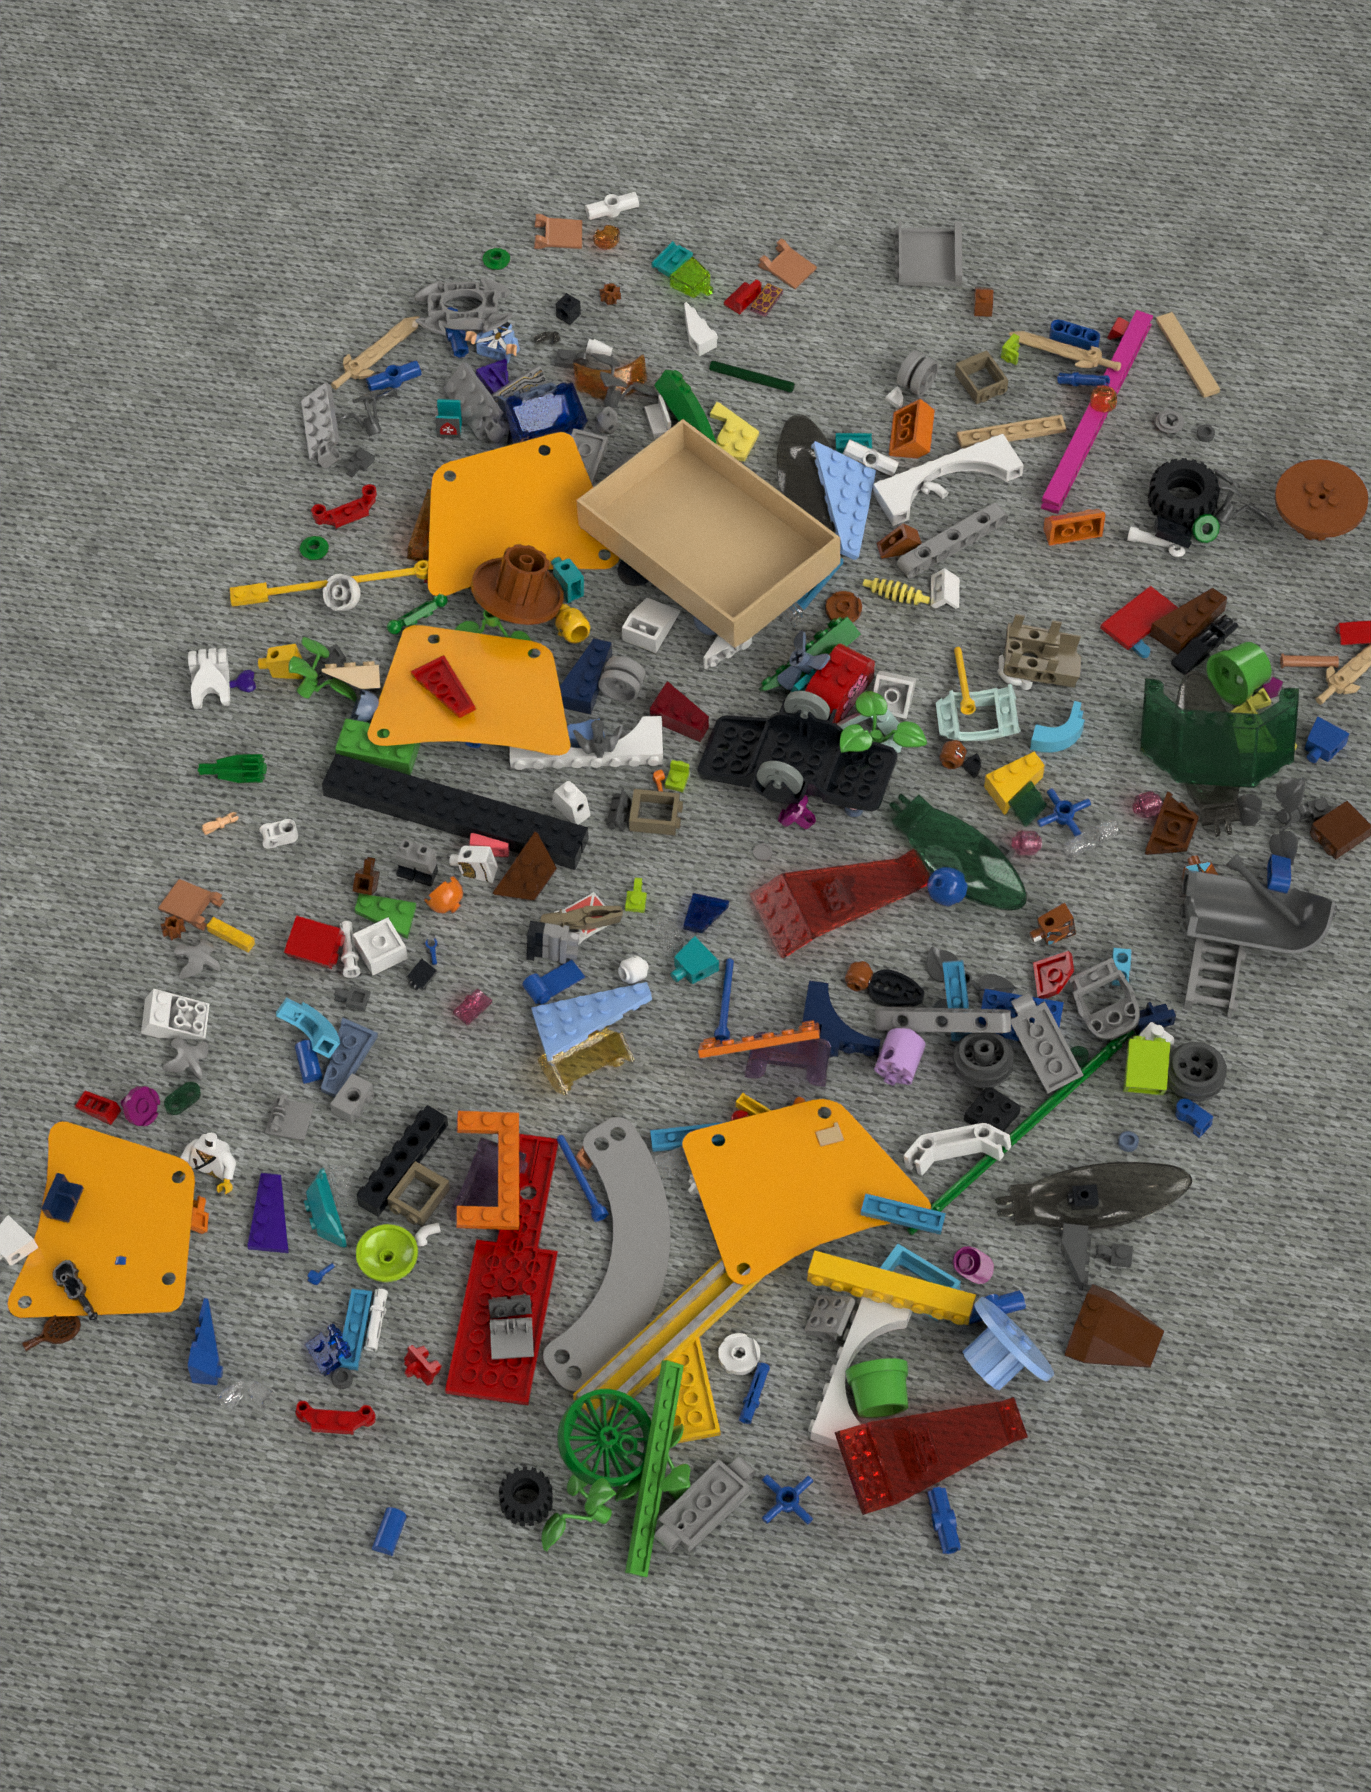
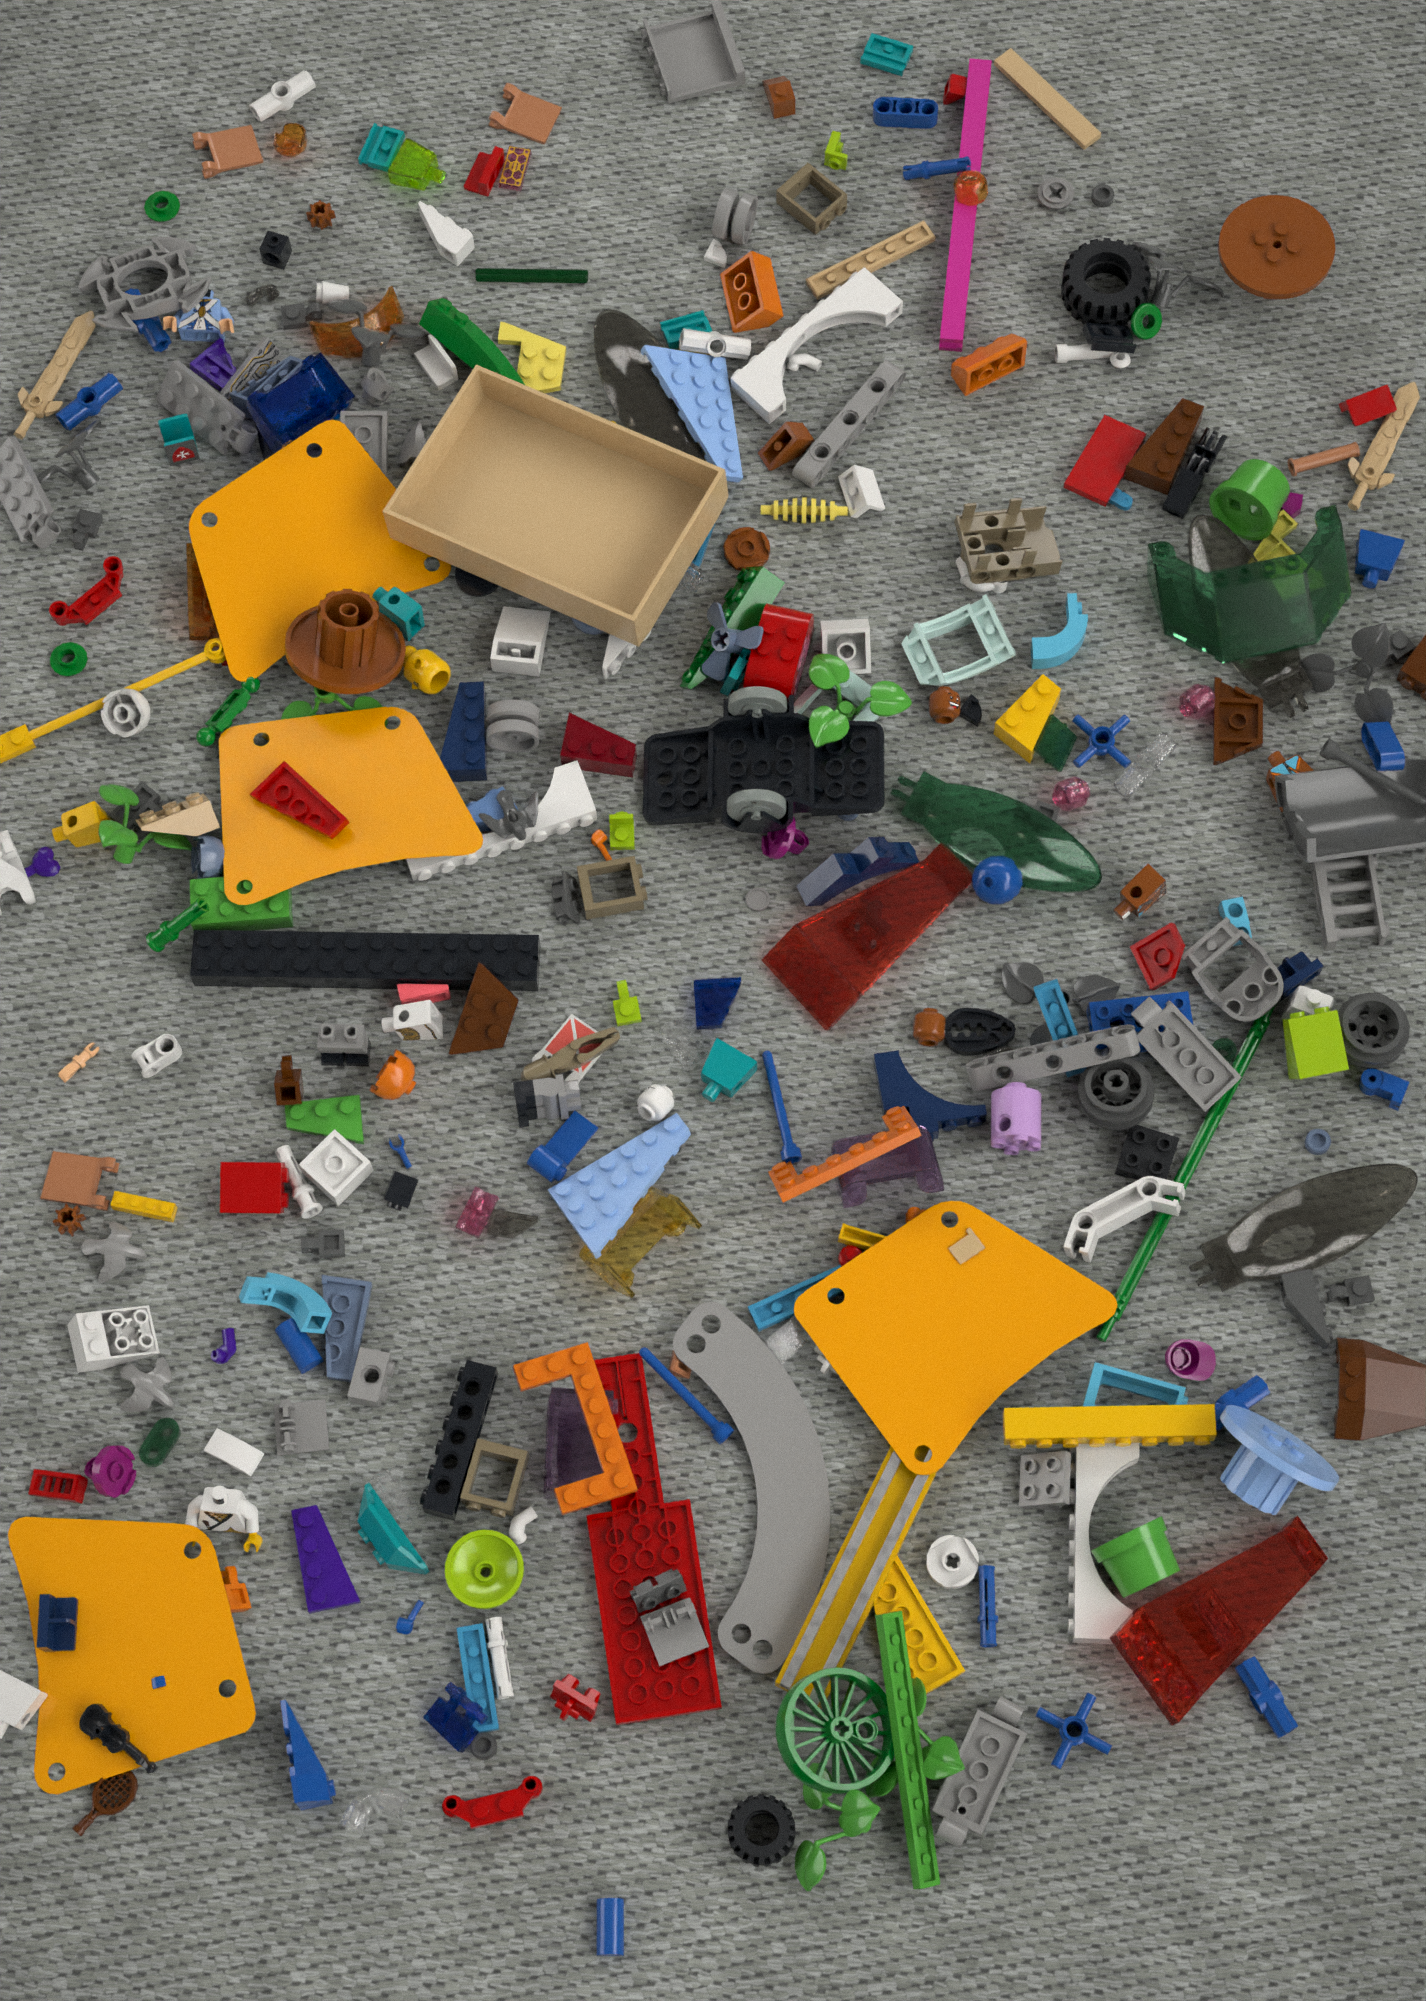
camera: 15 degrees left, 10 degrees up
(234, 1121) = (233, 1452): none -> white slope
(237, 768) = (75, 984): green piece -> none
(256, 1049) = (228, 1348): none -> dark purple arm
(319, 749) = (170, 930): none -> green pin
(494, 1023) = (509, 1224): none -> clear smoke tile
(569, 800) = (502, 906): white torso -> none
(834, 846) = (846, 870): none -> dark blue arch
(902, 1214) = (1089, 1323): dark azure plate -> none
(967, 704) = (942, 637): yellow piece -> none
(1075, 292) = (886, 54): none -> teal plate
(1083, 1197) = (1292, 1233): black brick -> none
(1086, 358) = (932, 139): tan sword -> none

